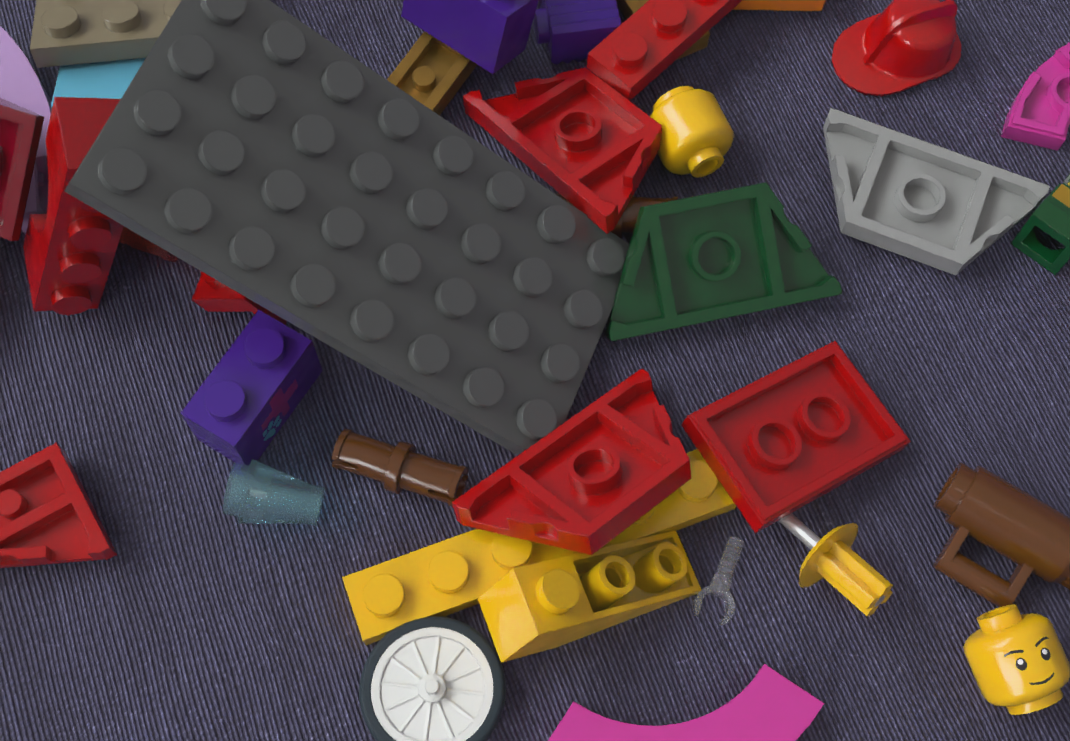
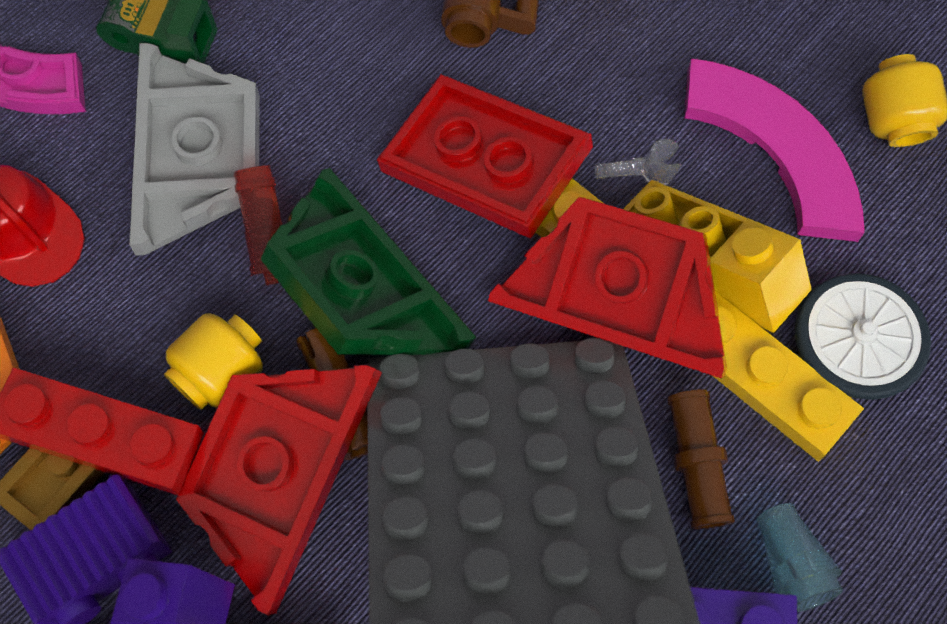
camera: 115 degrees left, 0 degrees up
(822, 211) = (260, 214): none -> clear red piece
(839, 565) = (584, 77): yellow piece -> none

